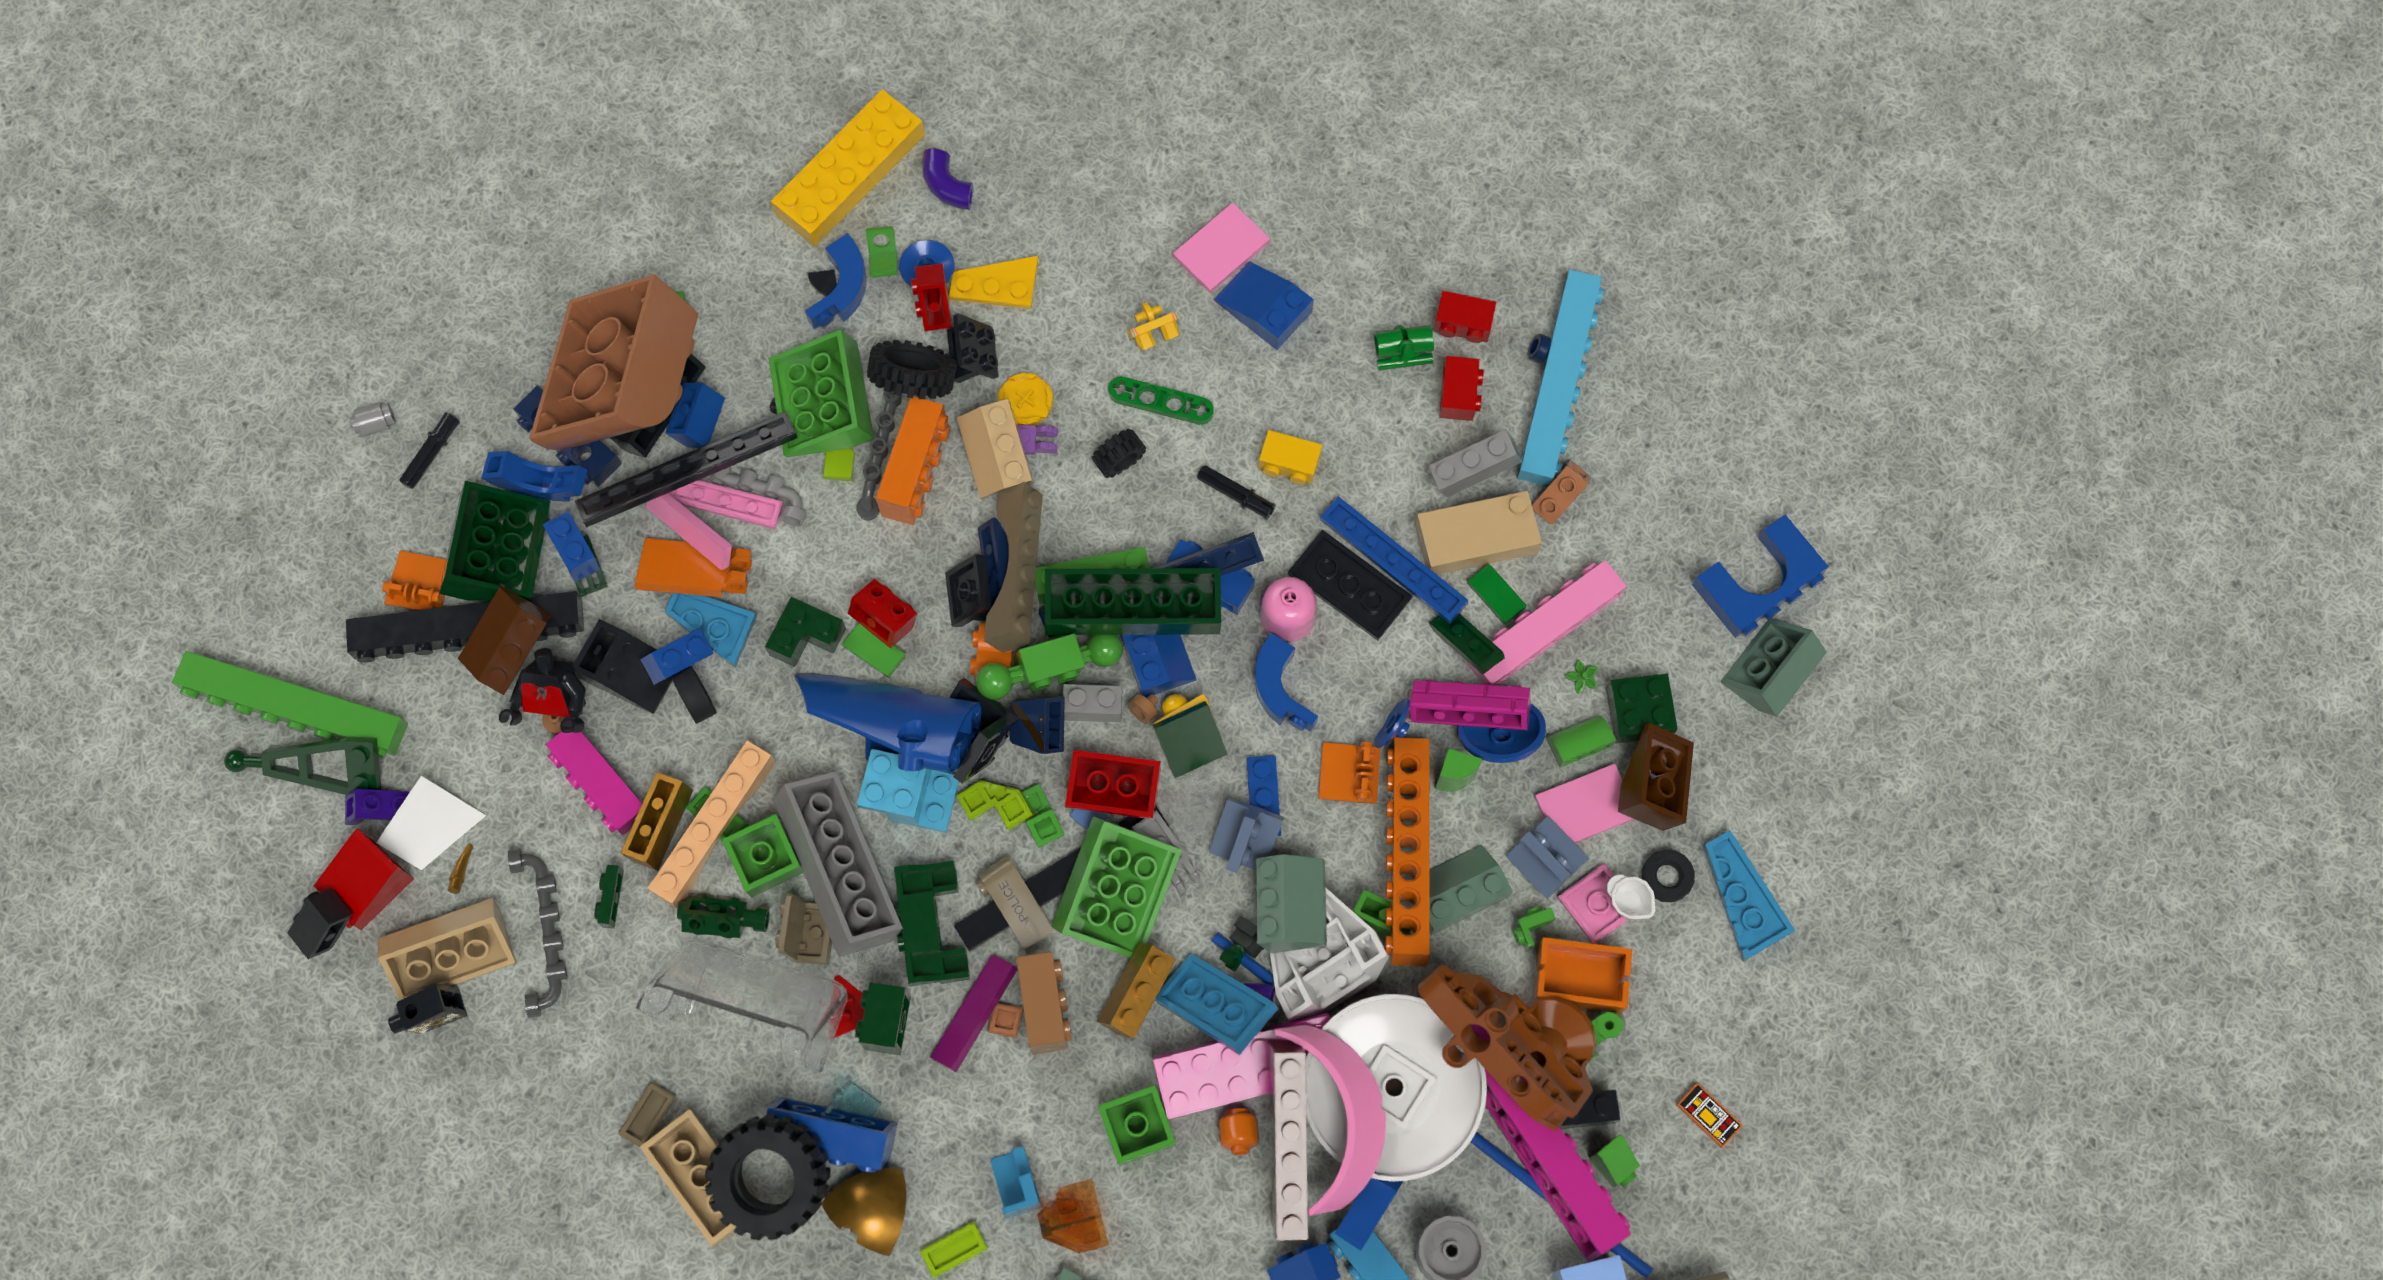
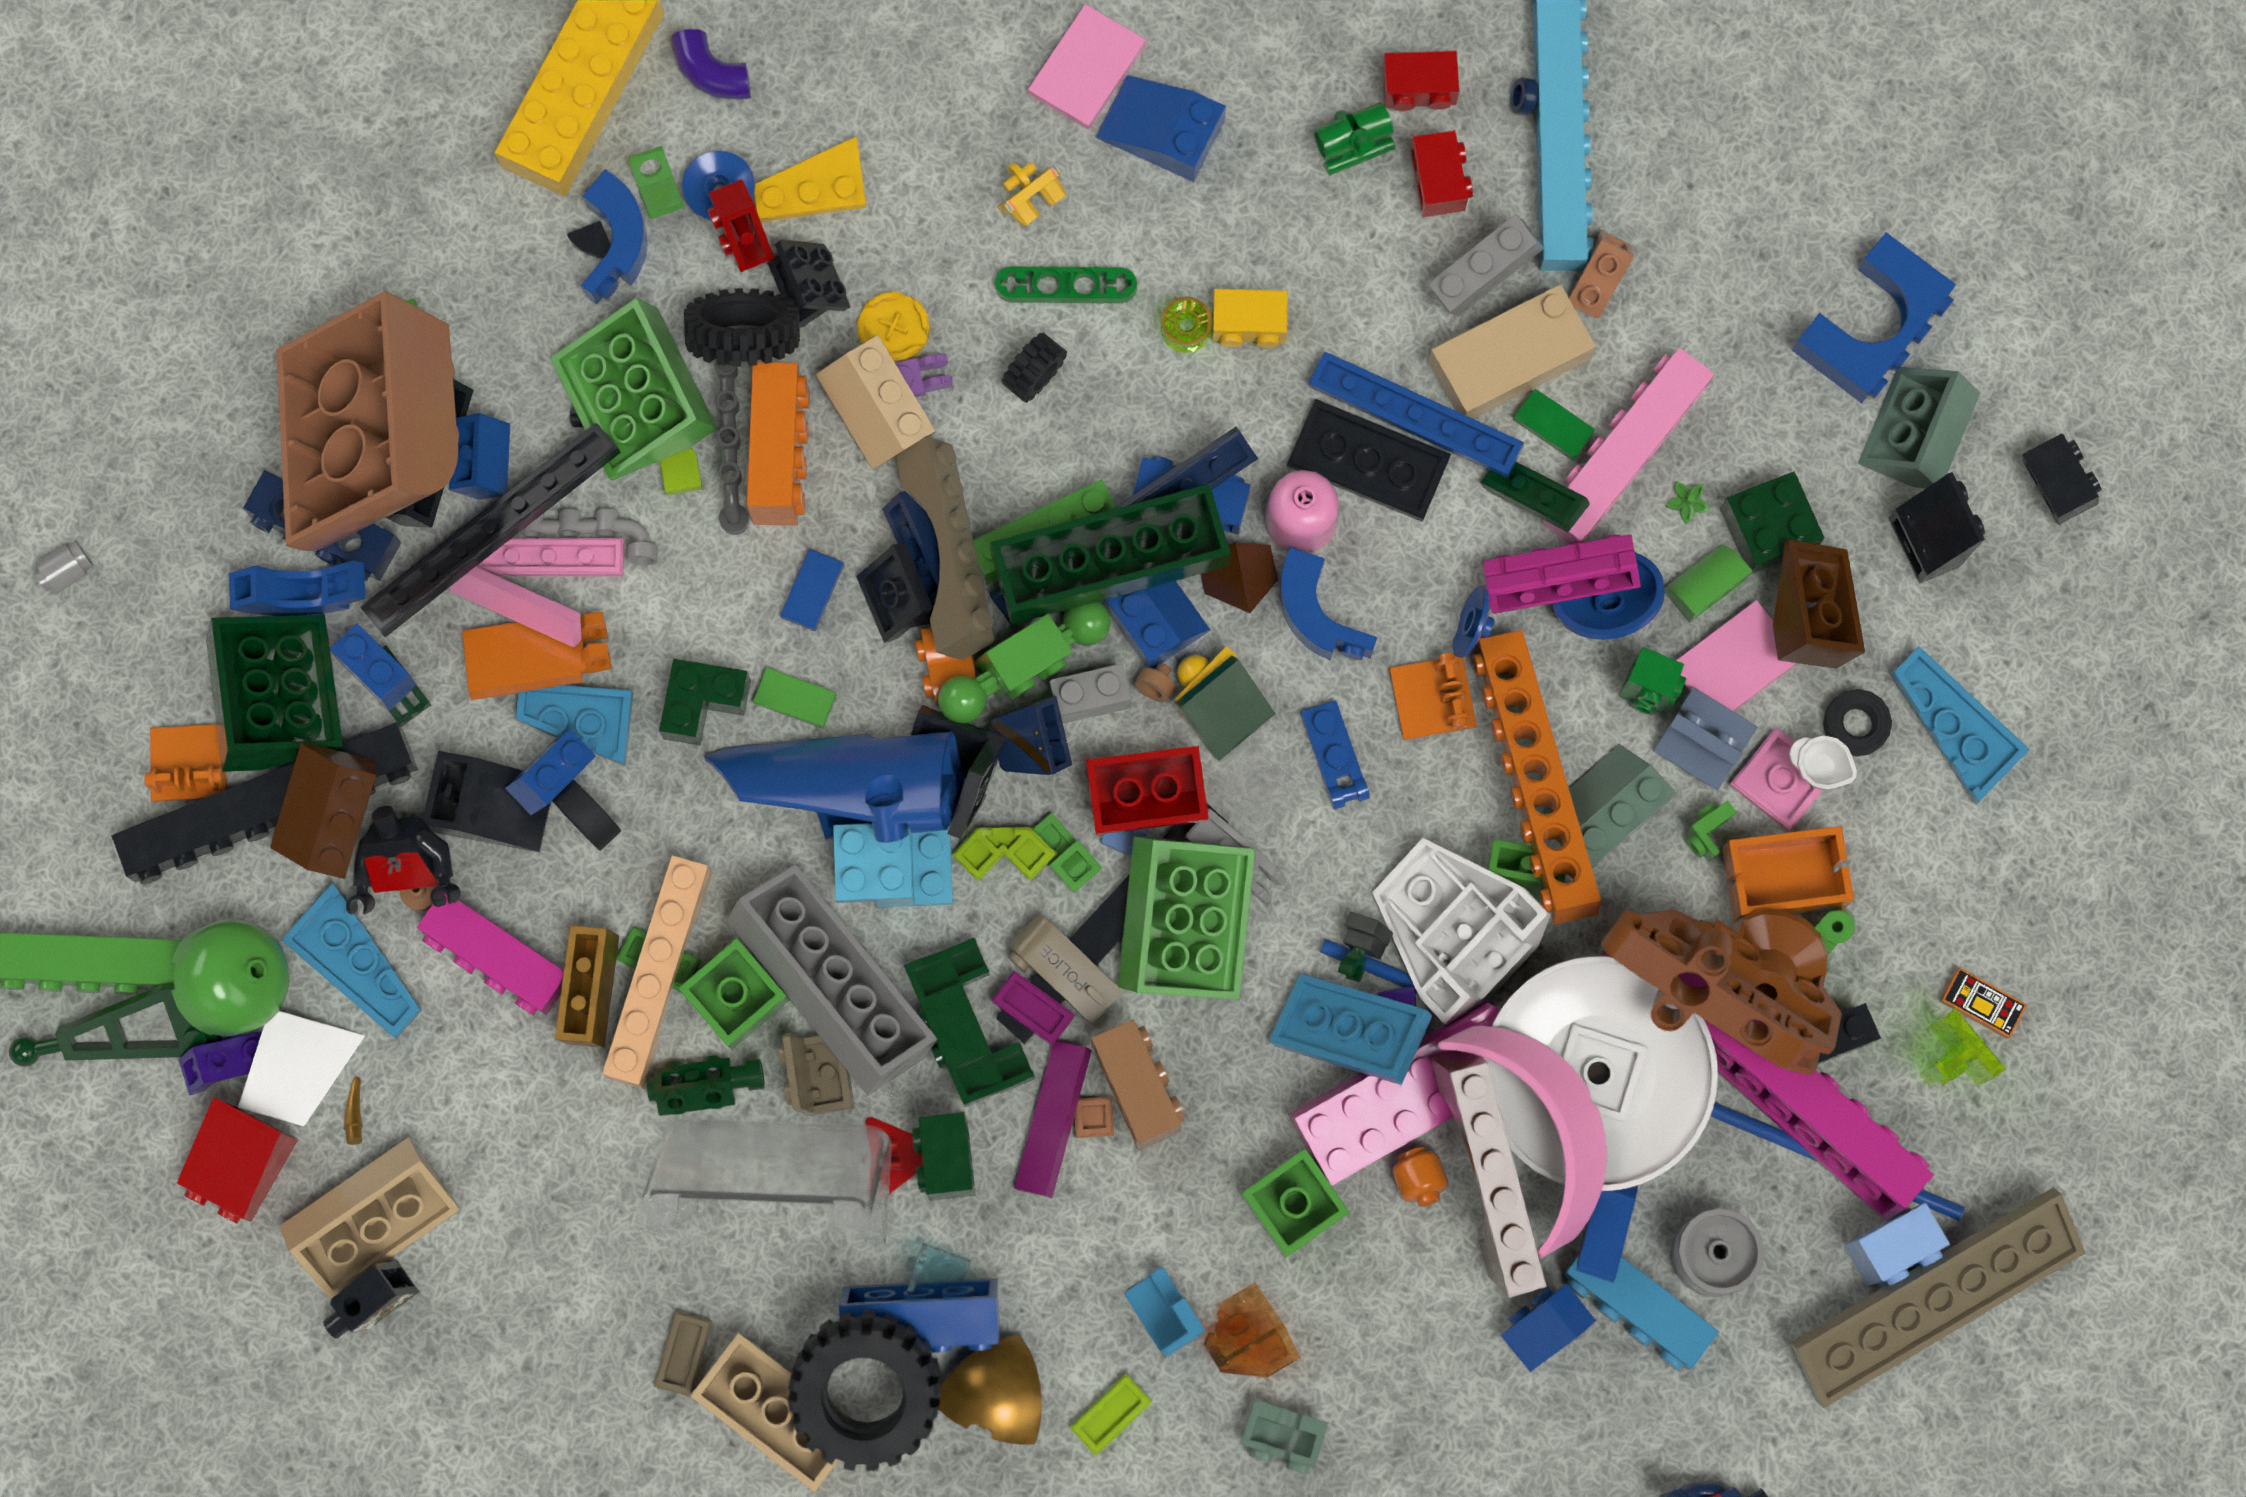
camera: 15 degrees left, 5 degrees up
(319, 923) = (199, 1227): black brick -> none
(397, 745) = (229, 977): none -> bright green cylinder
(429, 450) = (148, 589): black axle -> none
(492, 758) = (352, 961): none -> dark azure wing
(551, 941) = (497, 1170): dark grey bar -> none
(610, 884) = (551, 1080): dark green plate -> none
(882, 613) = (793, 648): red brick -> none
(911, 573) = (812, 590): none -> blue tile
(982, 925) = (1033, 1008): none -> magenta tile
(1136, 990) = (1246, 1038): pearl gold brick -> none
(1233, 645) = (1246, 578): none -> reddish brown slope
(1235, 491) = (1194, 378): black axle -> none
(1239, 440) = (1179, 312): none -> clear neon green wheel
(1245, 834) = (1328, 810): sand blue bracket -> none
(1291, 903) = (1408, 879): sand green slope -> none
(1457, 771) = (1566, 660): bright green brick -> none
(1517, 803) = (1653, 682): none -> green brick
(1616, 1162) = (1887, 1090): bright green slope -> none
(1683, 1147) = (1964, 1053): none -> clear neon green bracket
(1765, 744) = (1937, 528): none -> black slope
(1872, 731) = (2061, 478): none -> black brick

